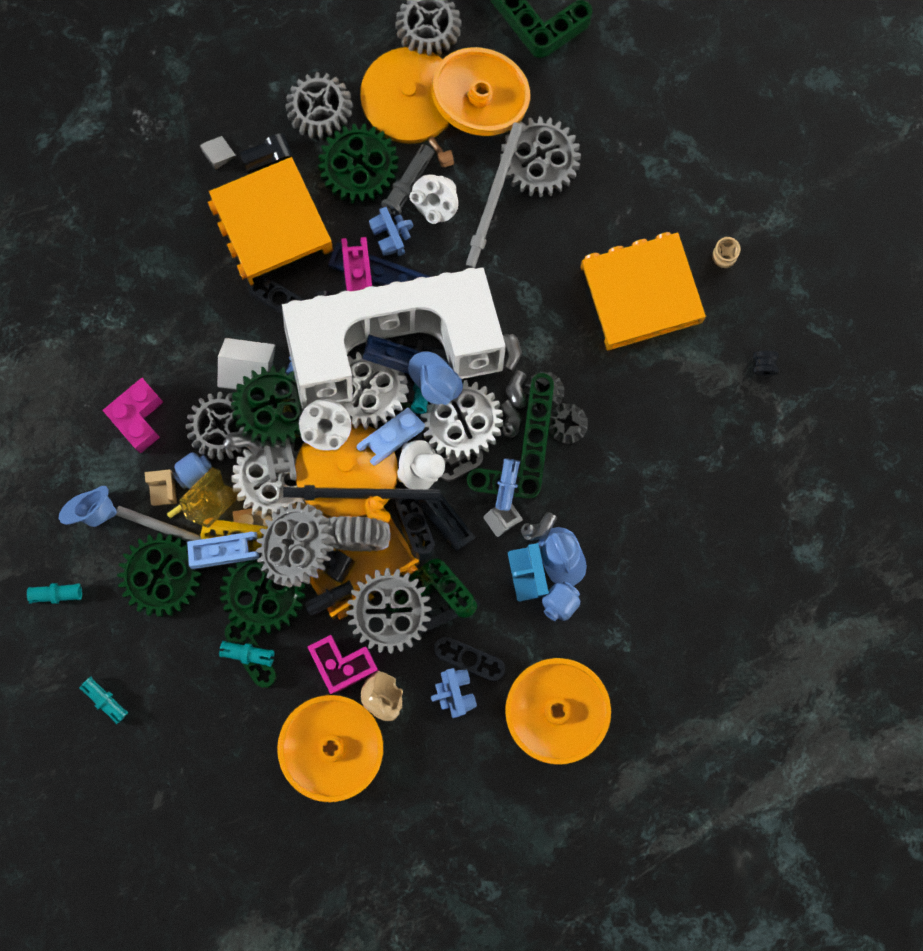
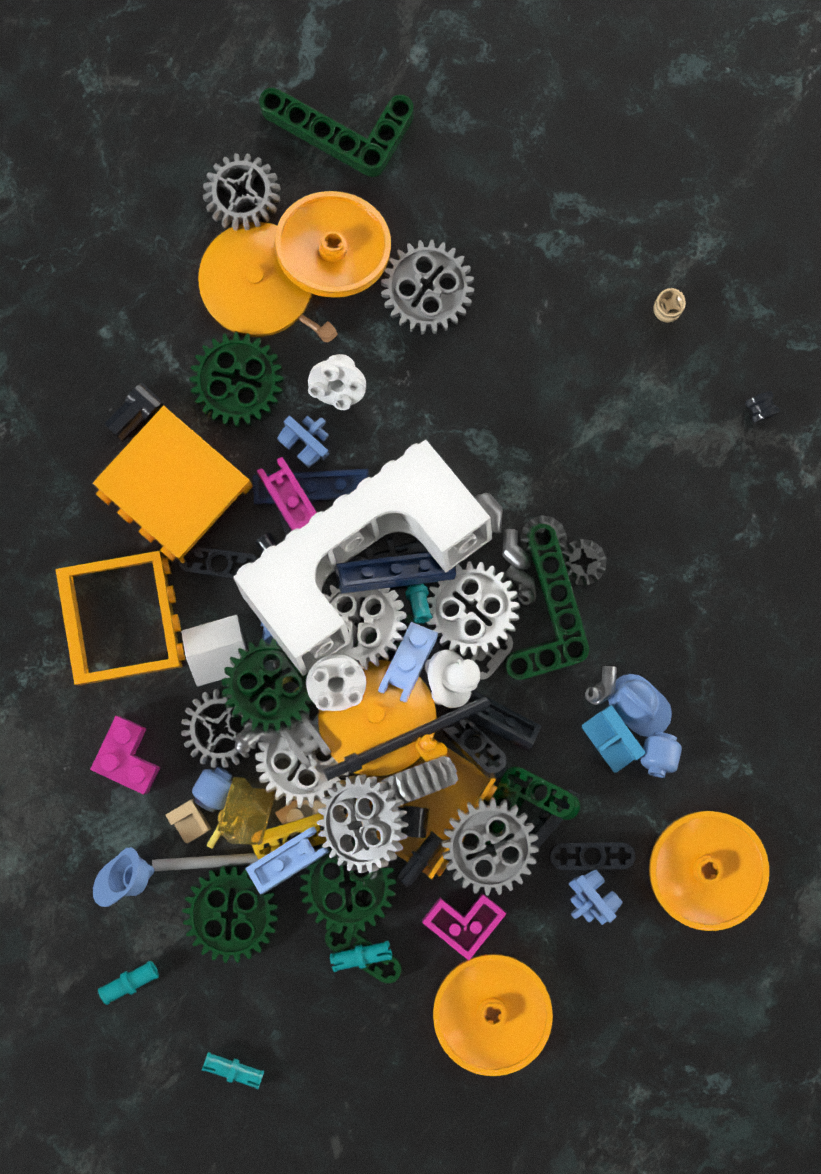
camera: 25 degrees left, 5 degrees up
(143, 295) = (73, 624): none -> light orange window
(217, 152) = (79, 432): light grey slope -> none
(327, 89) = (151, 331): light grey gear -> none
(382, 696) = (521, 937): tan hair -> none
(403, 187) = (297, 385): dark grey pin -> none
(434, 378) = (427, 580): medium blue piece -> none
(478, 241) = (402, 408): light grey bar -> none
(502, 521) = (560, 692): light grey slope -> none
(507, 484) = (553, 658): medium blue axle -> none
(643, 290) = (600, 384): light orange panel -> none

